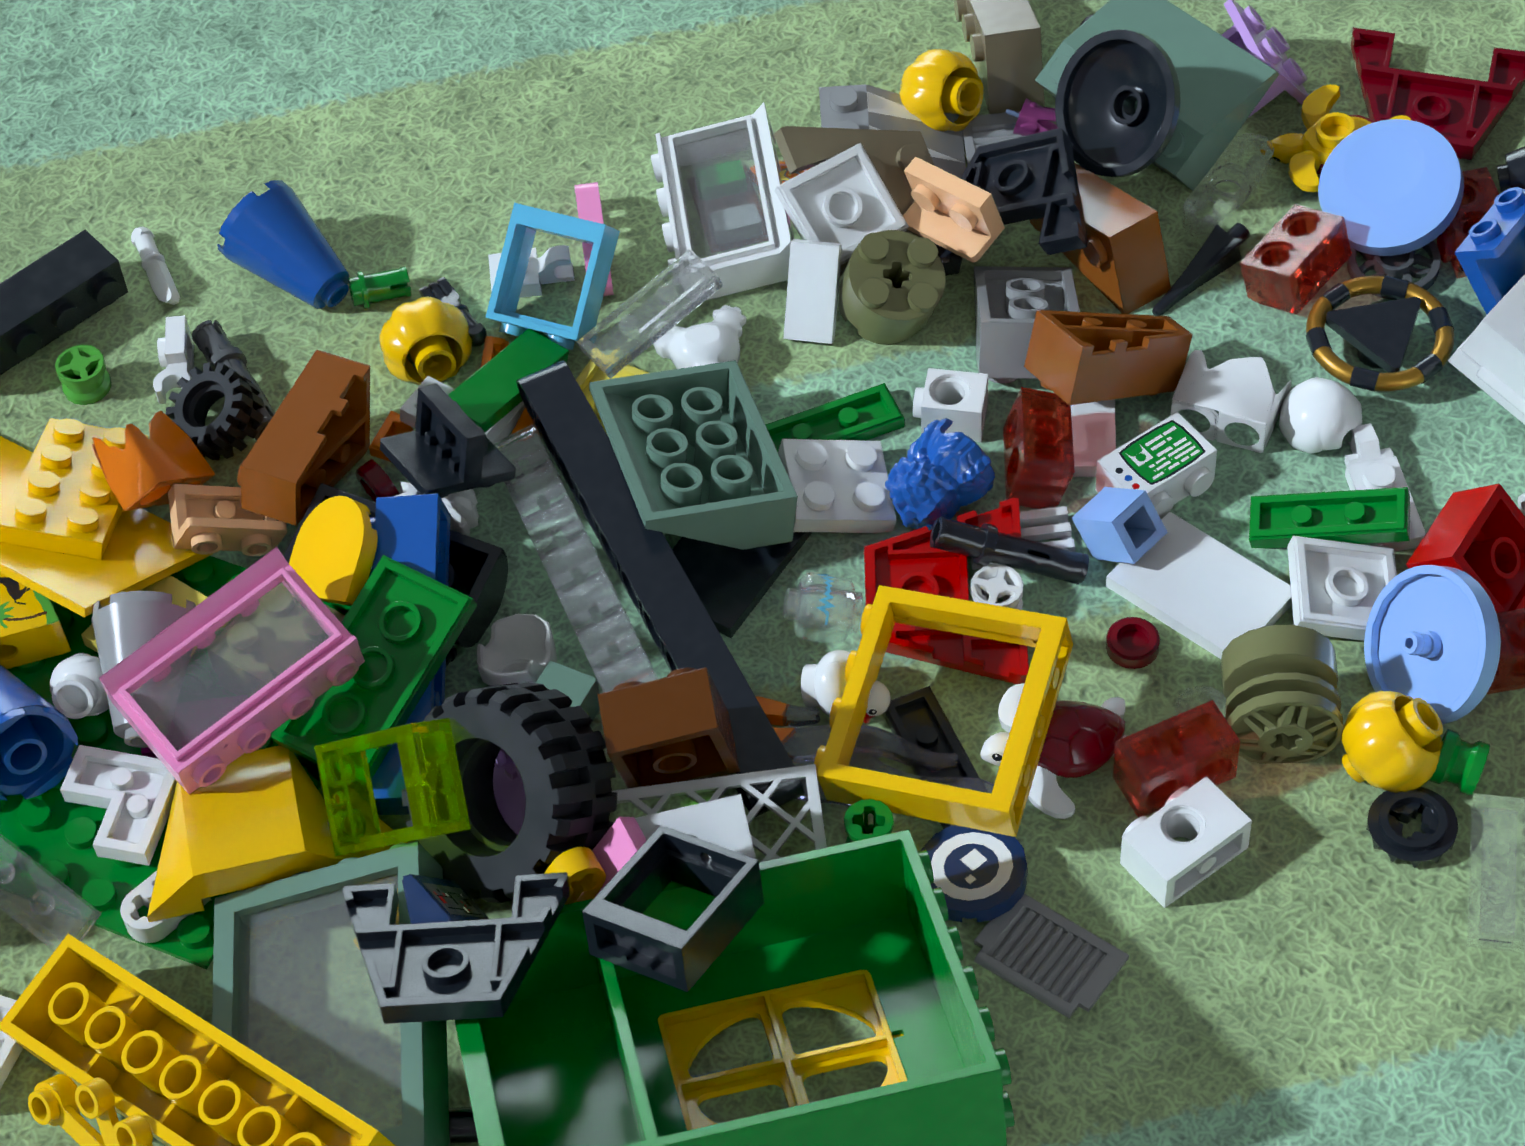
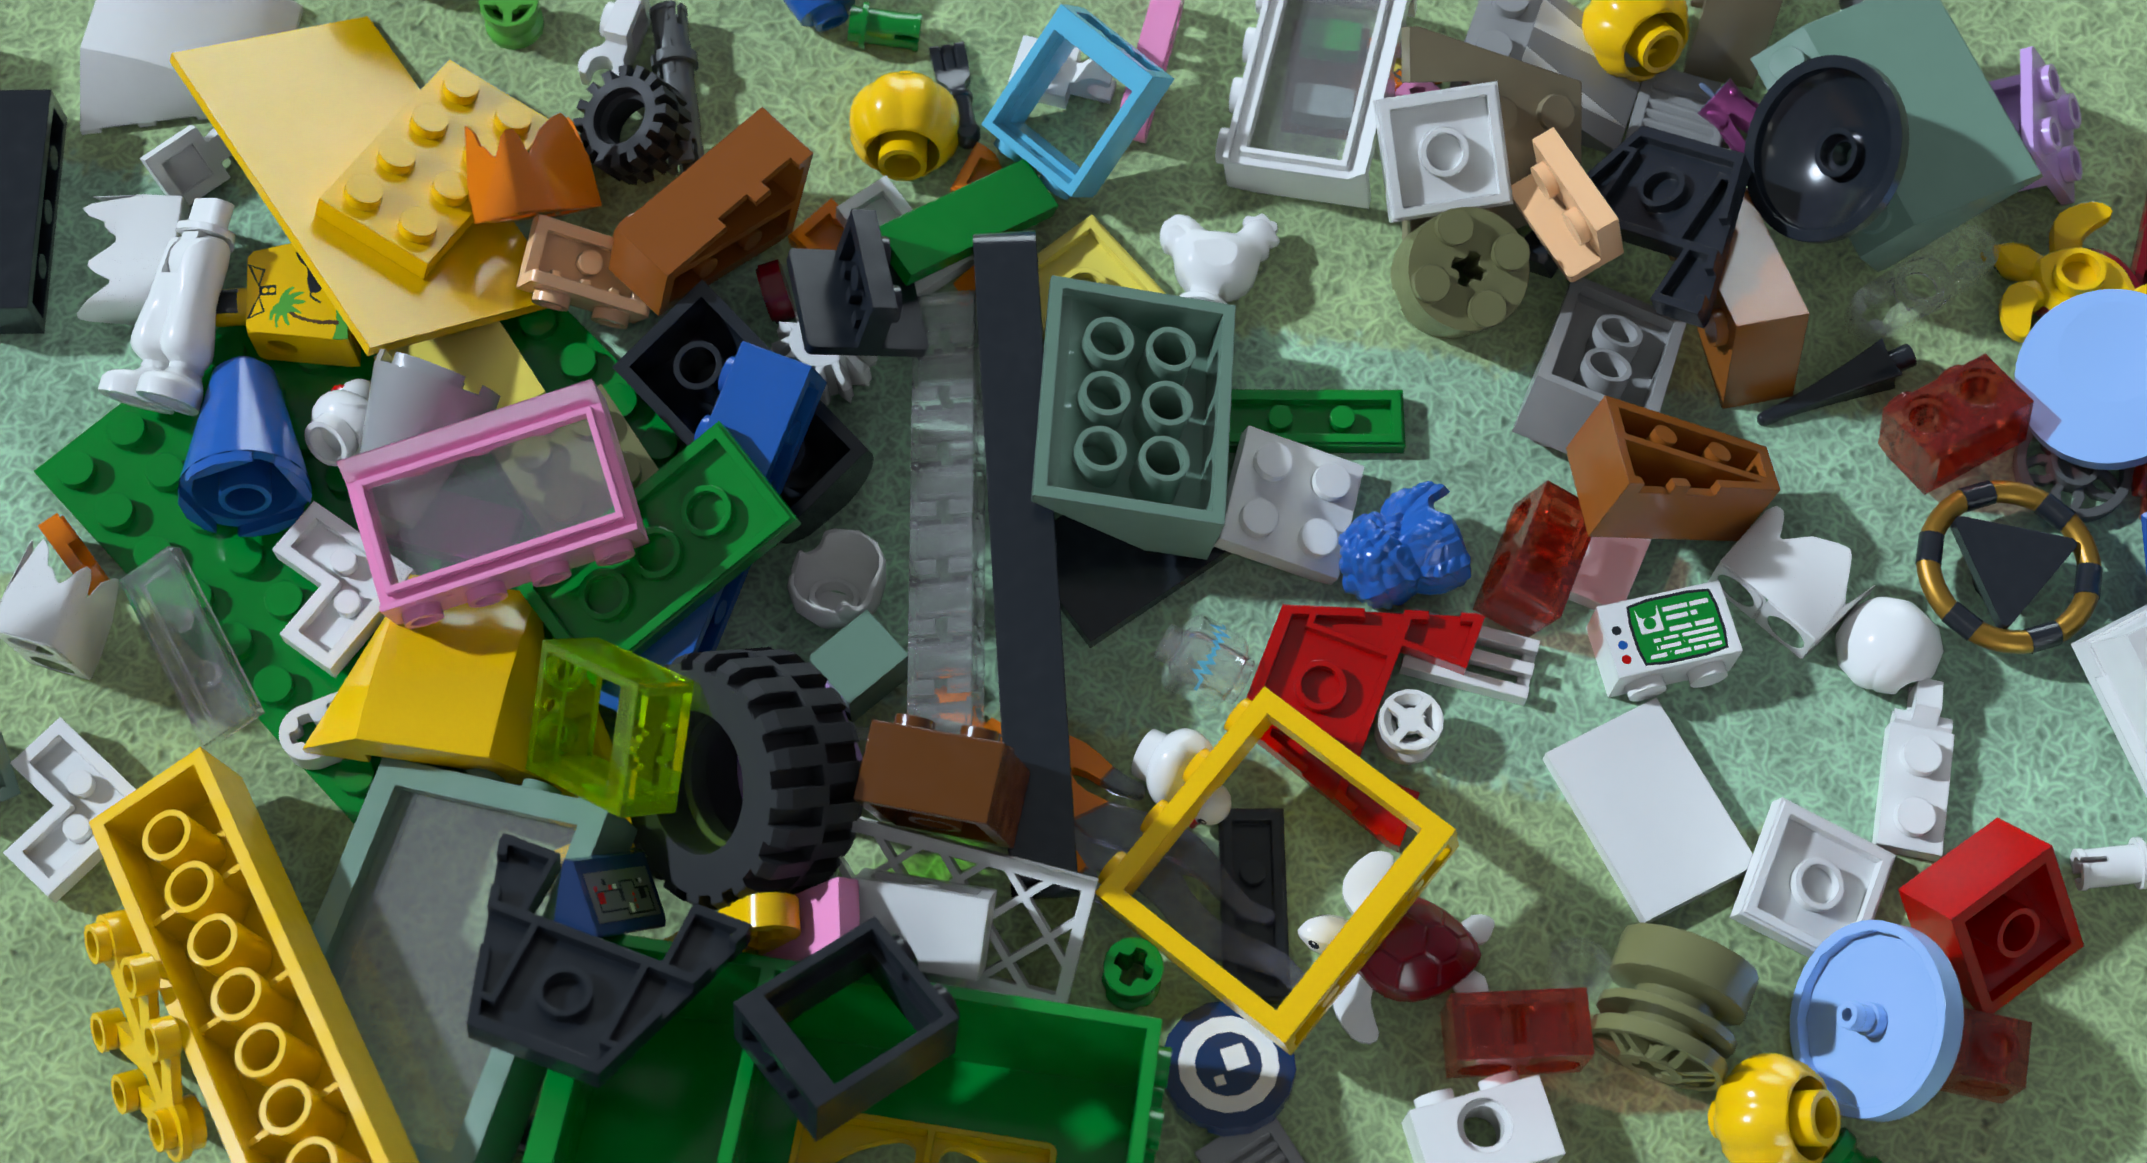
camera: 15 degrees right, 15 degrees up
(336, 550) = (673, 384): yellow tile -> none
(650, 313) = (1168, 196): clear tile -> none
(812, 291) = (1367, 241): white tile -> none
(953, 396) = (1472, 479): white brick -> none
(989, 545) = (1423, 668): black pin -> none
(1119, 525) = (1587, 698): light blue brick -> none
(1132, 642) = (1539, 848): dark red tile -> none
(1334, 516) = (1838, 788): green tile -> none

